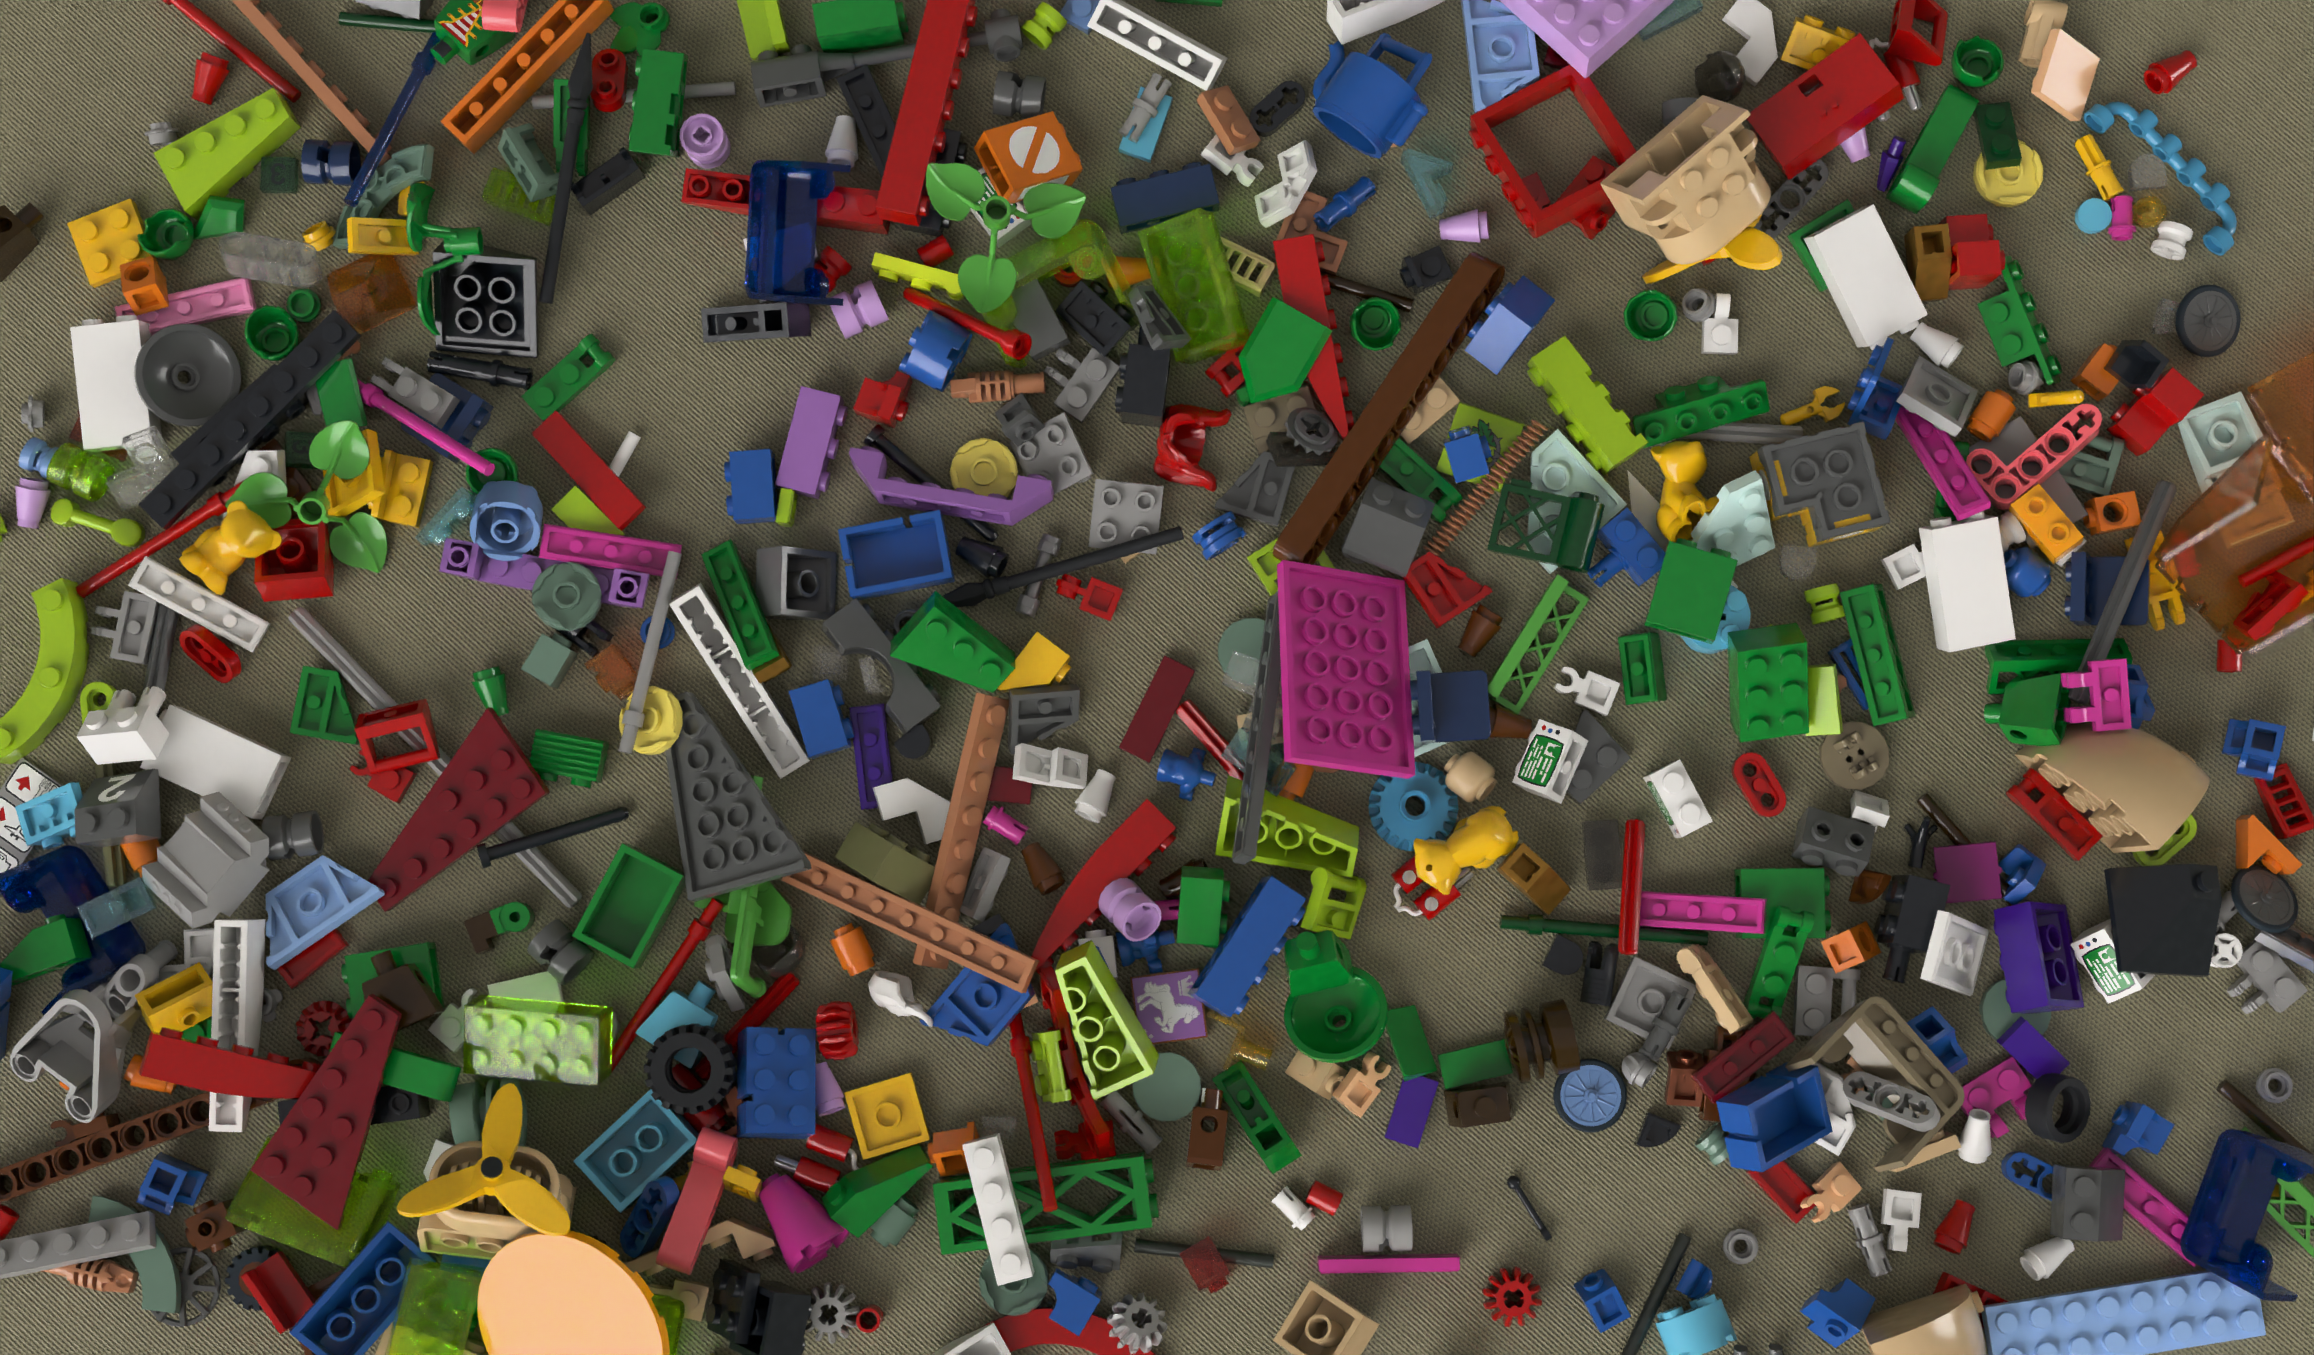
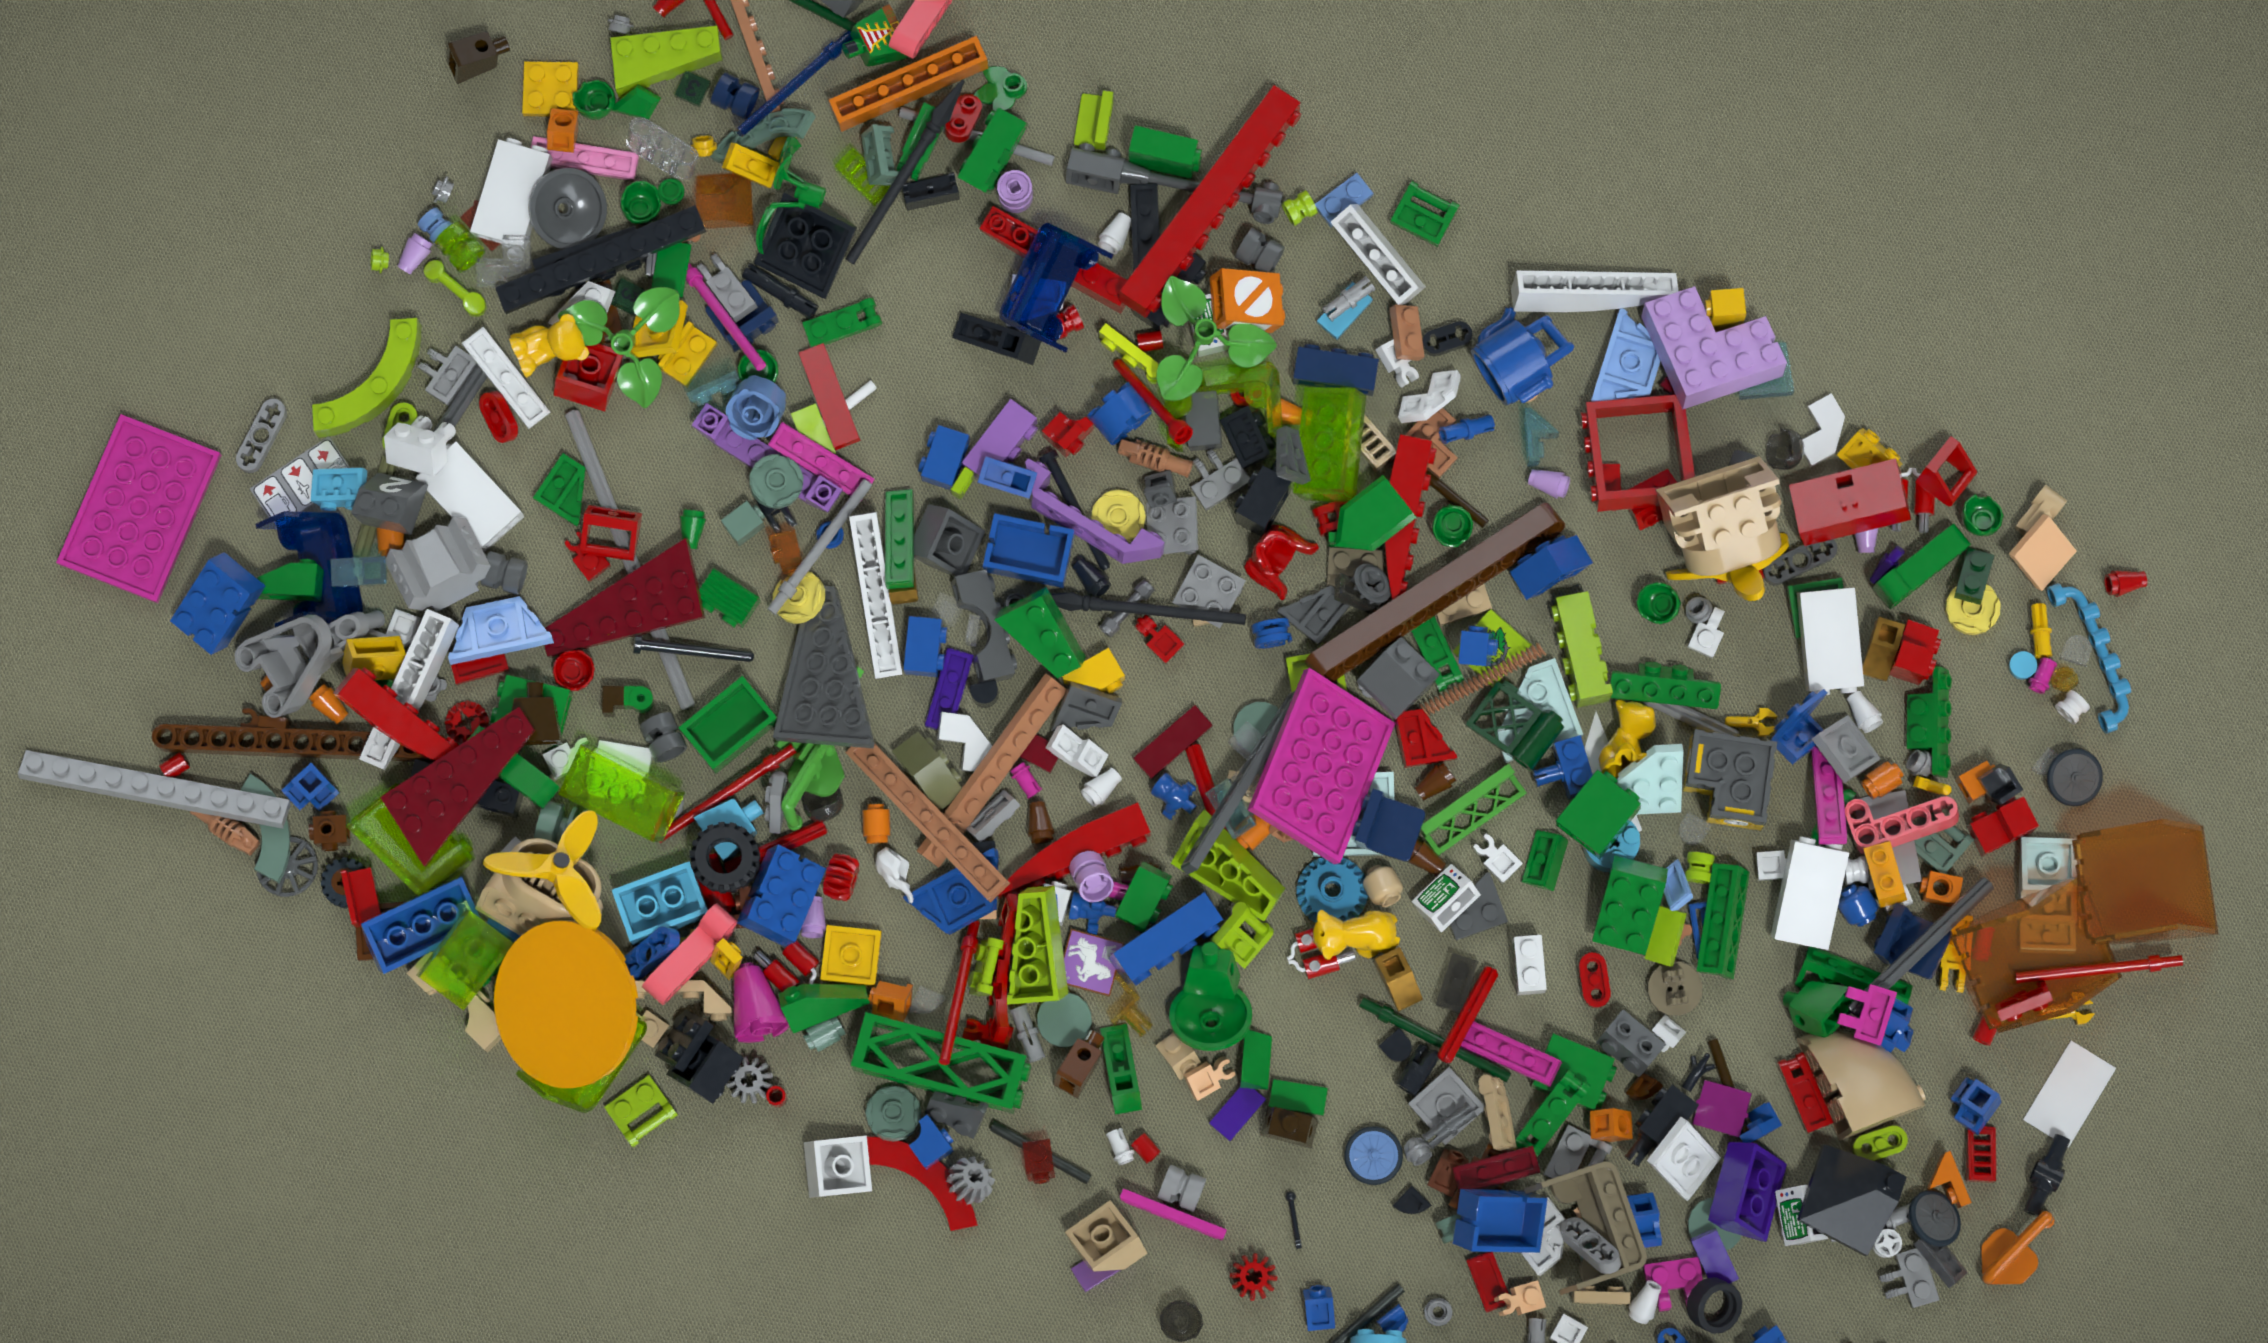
camera: 20 degrees right, 5 degrees down
(214, 506) = (549, 311): red bar -> none
(422, 916) = (573, 670): none -> red hair
(835, 480) = (1007, 477): none -> blue slope
(859, 309) = (1077, 359): lavender wheel -> none
(998, 1209) = (906, 1046): white brick -> none
(1425, 270) = (1506, 502): black bracket -> none
(1542, 1040) = (1352, 1097): dark brown wheel -> none
(1819, 641) = (1677, 888): none -> light blue tile

